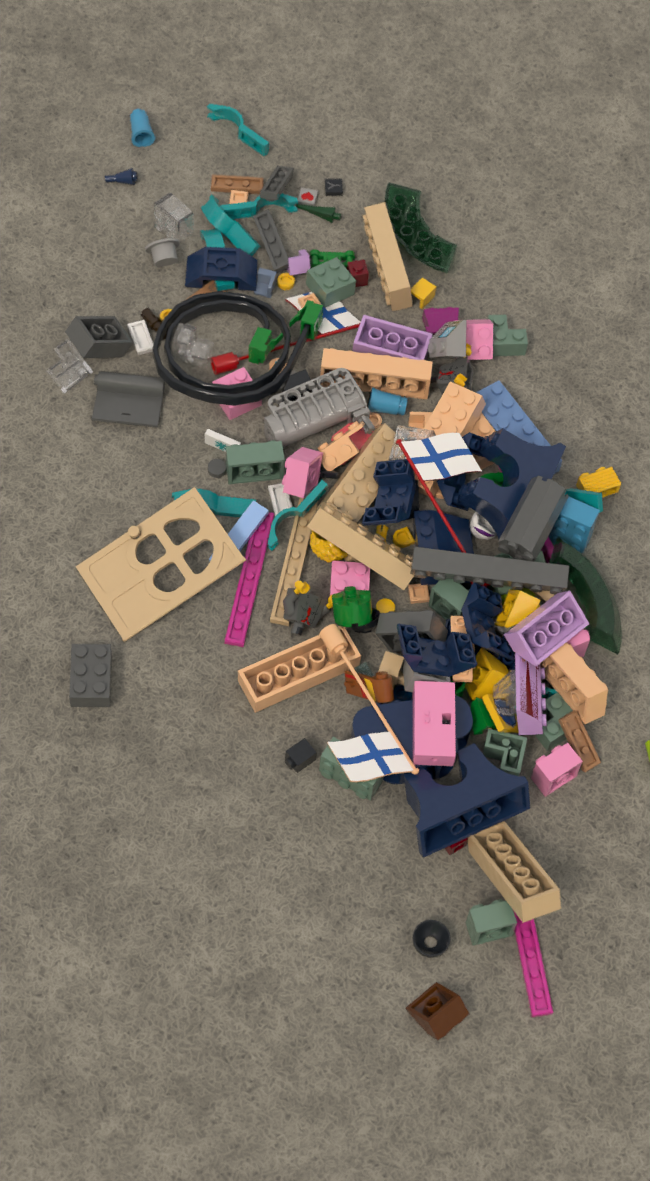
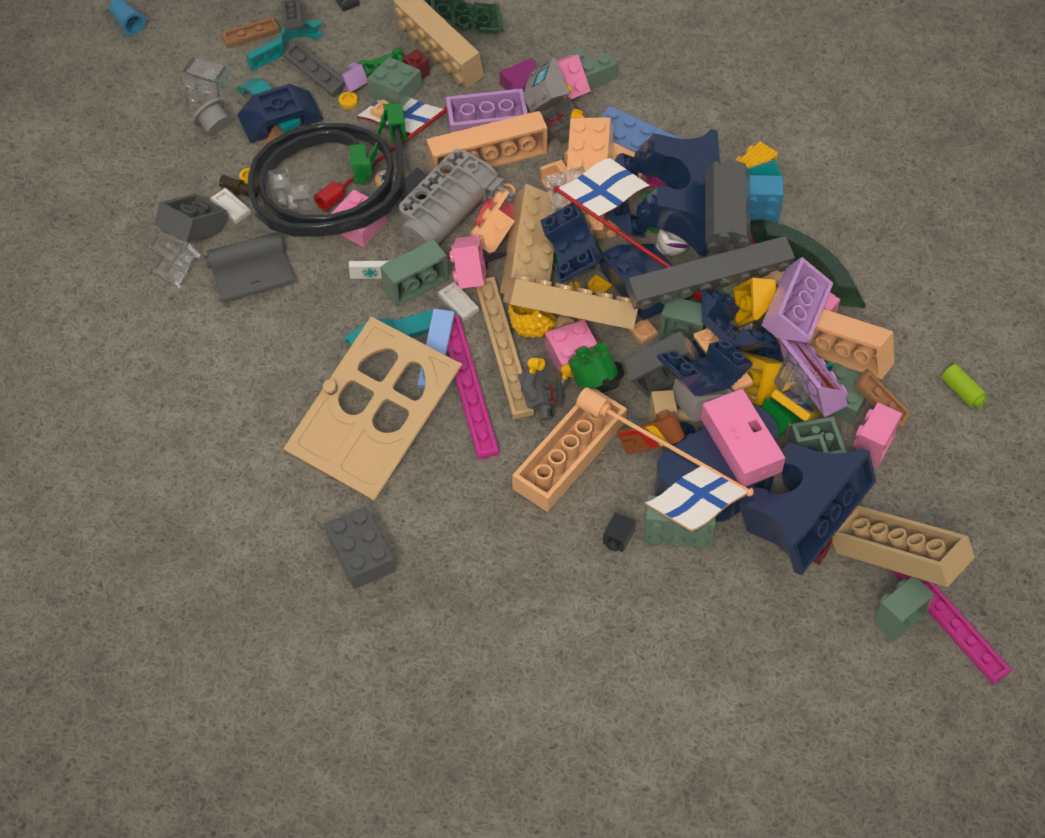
camera: 20 degrees left, 5 degrees down
(126, 177) = (135, 65): dark blue cone -> none
(217, 468) = (376, 296): dark grey tile -> none
(229, 227) = (263, 70): teal piece -> none
(238, 196) = (257, 42): light nougat tile -> none
(265, 283) = (329, 108): sand blue panel -> none
(300, 511) = (484, 301): teal piece -> none
(307, 197) = (327, 18): light grey tile -> none
(325, 213) = (353, 25): dark green piece -> none
(385, 605) = (619, 355): yellow tile -> none
(386, 402) = (513, 168): dark azure plant -> none
(423, 291) = (490, 56): yellow panel -> none
(433, 929) = (856, 643): black piece -> none
(438, 1010) = (901, 720): reddish brown slope -> none

